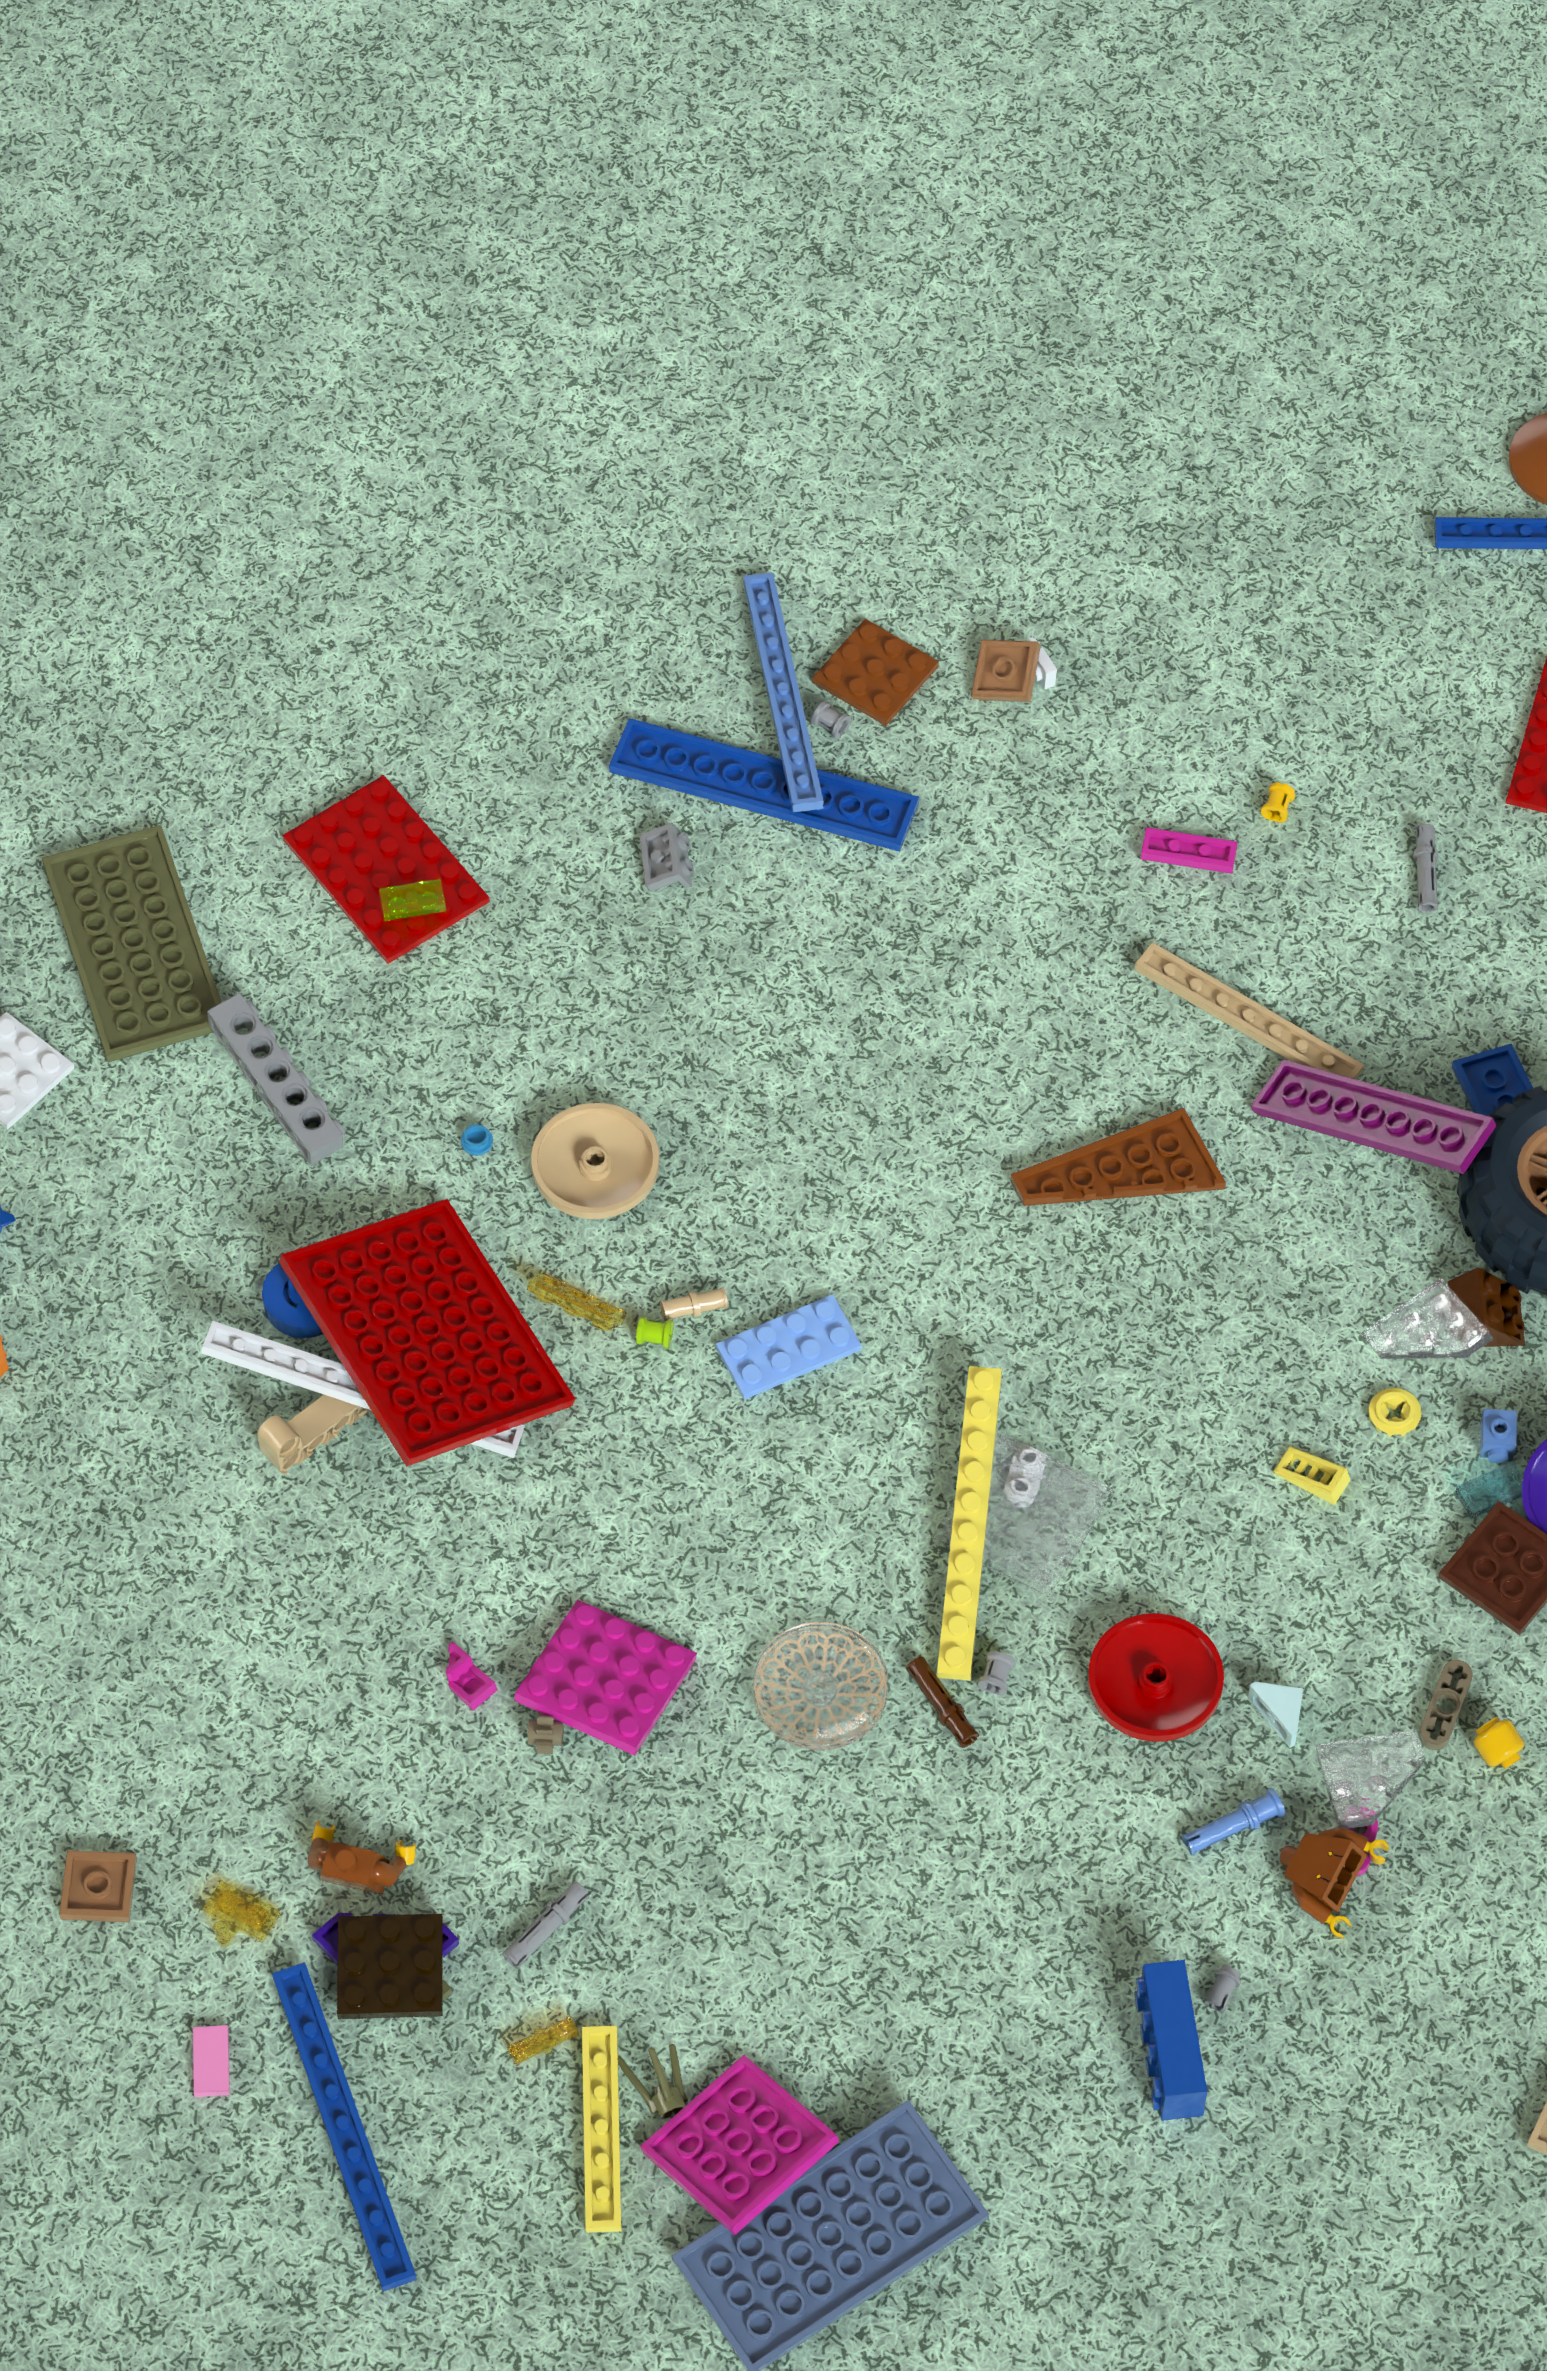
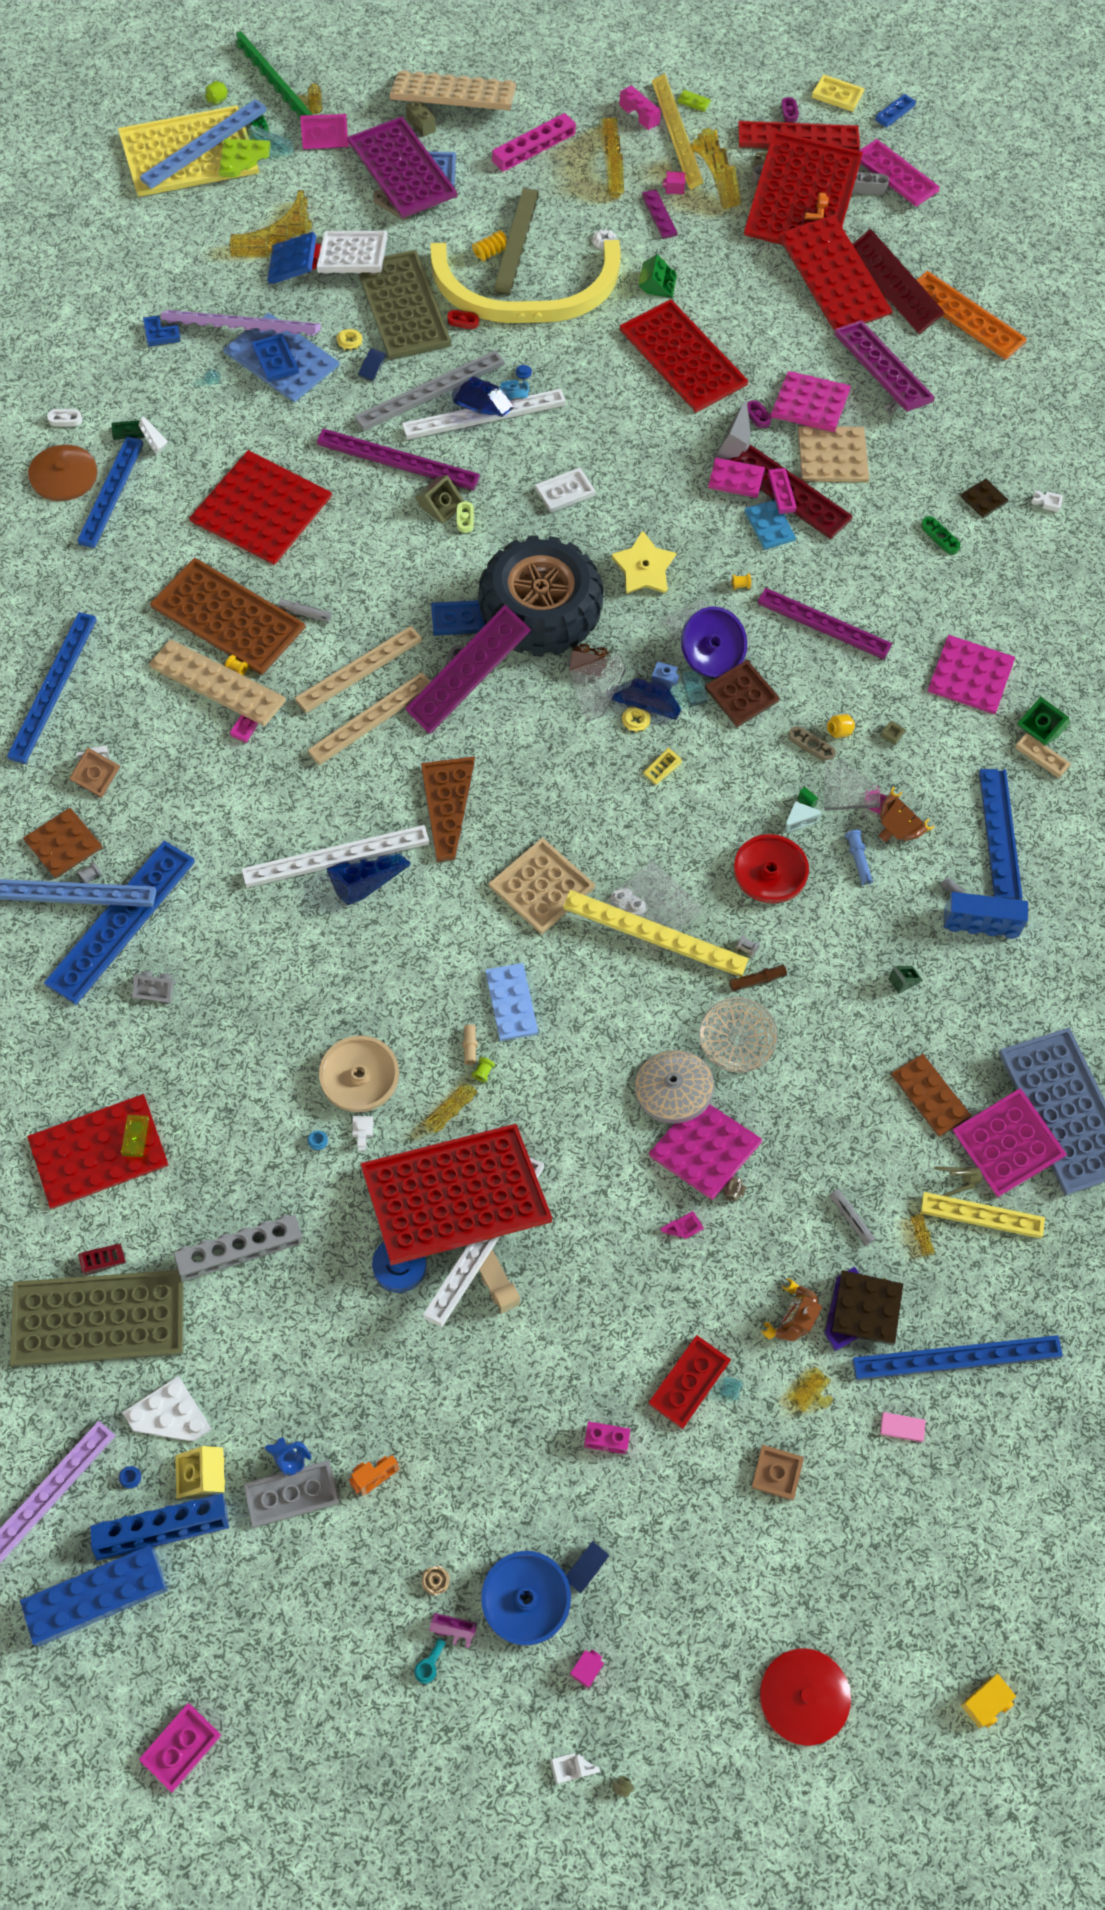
camera: 80 degrees left, 5 degrees up
(98, 1633) = (607, 1438): none -> dark pink brick
(212, 904) = (91, 1254): none -> dark red slope
(214, 1734) = (689, 1382): none -> red plate
(215, 1789) = (736, 1384): none -> clear light blue plate
(511, 1194) = (362, 1129): none -> white plate
(701, 1611) = (674, 1086): none -> light grey dish
(803, 2015) = (931, 1095): none -> dark orange plate
(940, 1079) = (361, 879): none -> clear blue wedge
(972, 1037) = (332, 856): none -> white plate
(1013, 1934) = (904, 978): none -> dark green slope
(1018, 1329) = (539, 885): none -> tan plate
(1147, 572) = (51, 688): none -> blue plate
(1234, 785) = (217, 682): none -> tan plate
(1322, 1713) = (807, 797): none -> green plate
(1339, 975) = (358, 669): none -> tan plate
(1367, 2056) = (1000, 834): none -> blue plate
(1372, 765) = (228, 615): none -> dark orange plate
(1444, 1421) = (648, 697): none -> clear blue wedge
(1518, 1836) = (893, 732): none -> olive plate

